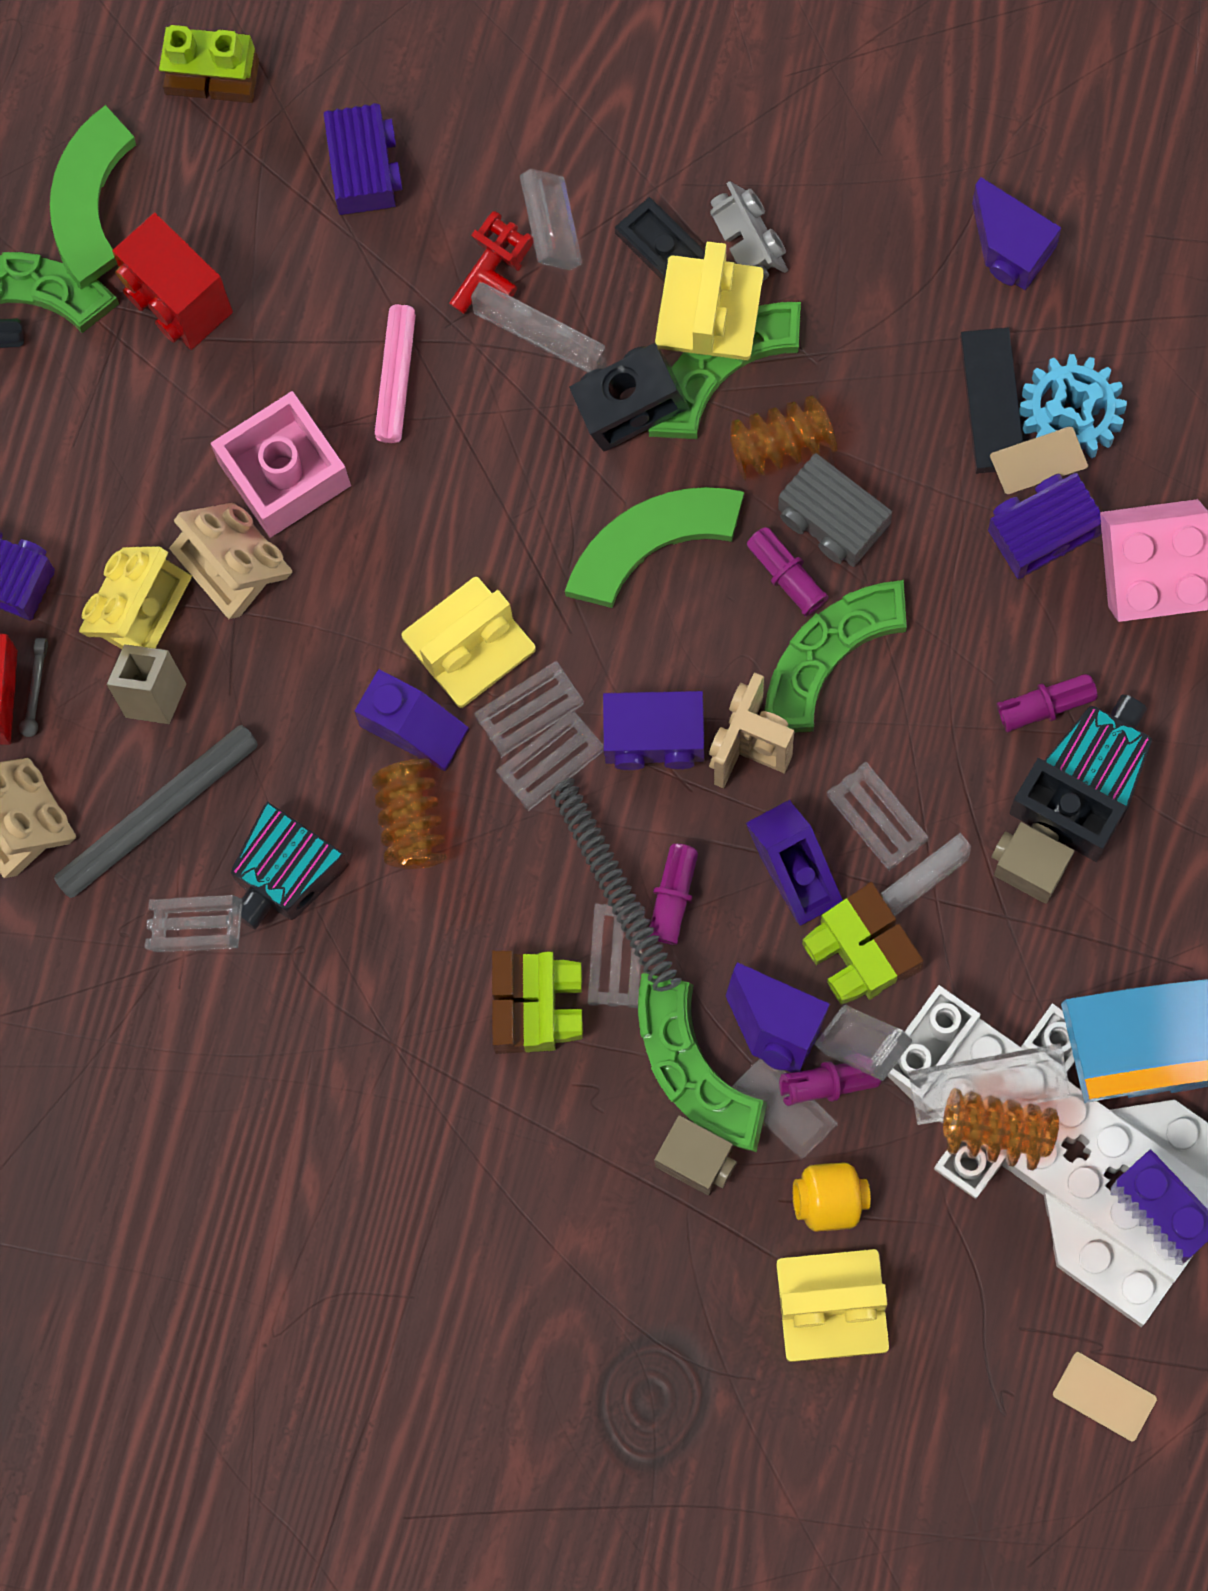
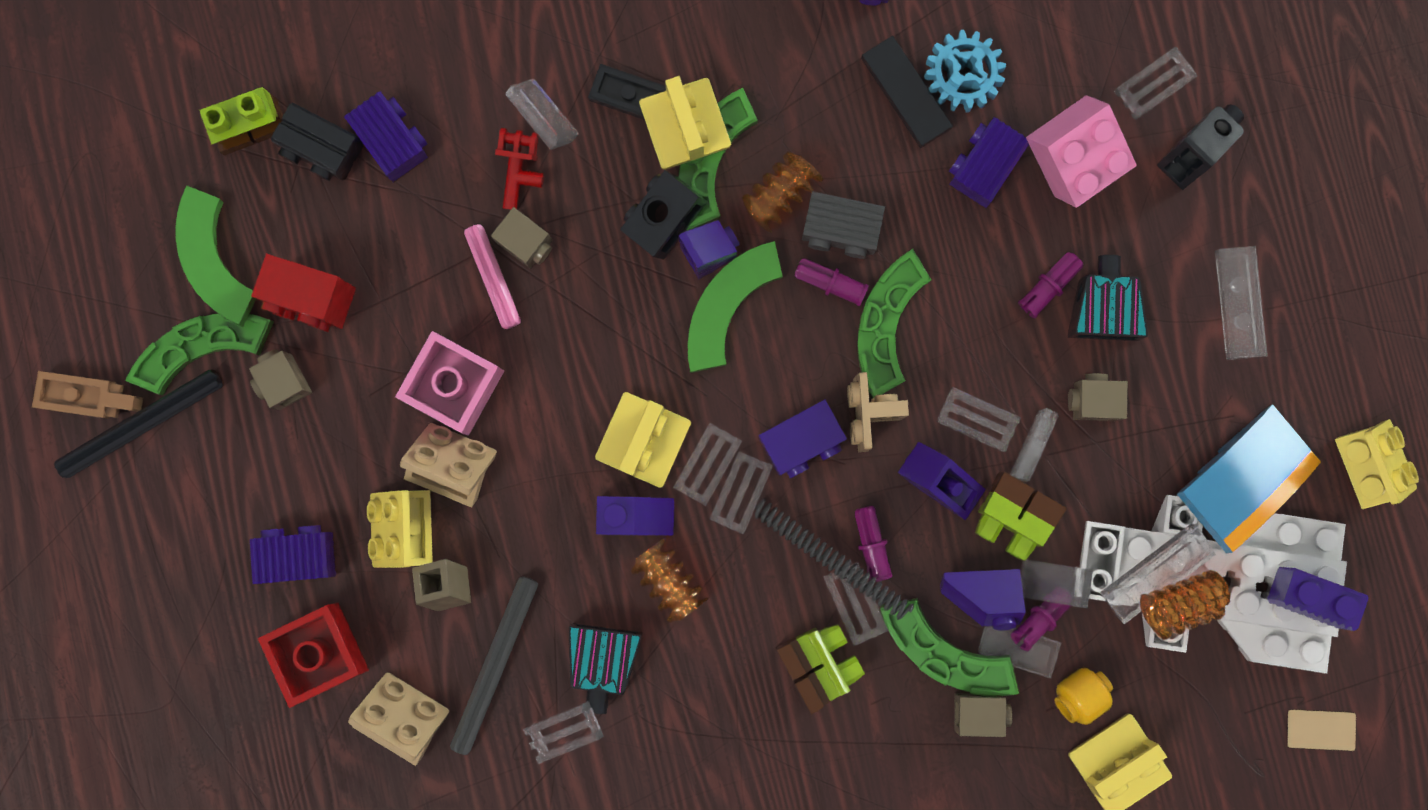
camera: 30 degrees left, 10 degrees up
(29, 726) = (374, 650): dark grey hinge -> none
(89, 368) = (278, 379): none -> dark tan brick
(277, 127) = (317, 142): none -> black brick
(452, 346) = (523, 238): none -> dark tan brick
(538, 328) = (575, 196): clear tile -> none
(660, 457) = (708, 247): none -> dark purple slope
(741, 215) = (671, 46): light grey hinge -> none
(1038, 459) = (962, 119): tan sticker -> none
(1069, 808) = (1107, 354): black brick -> none

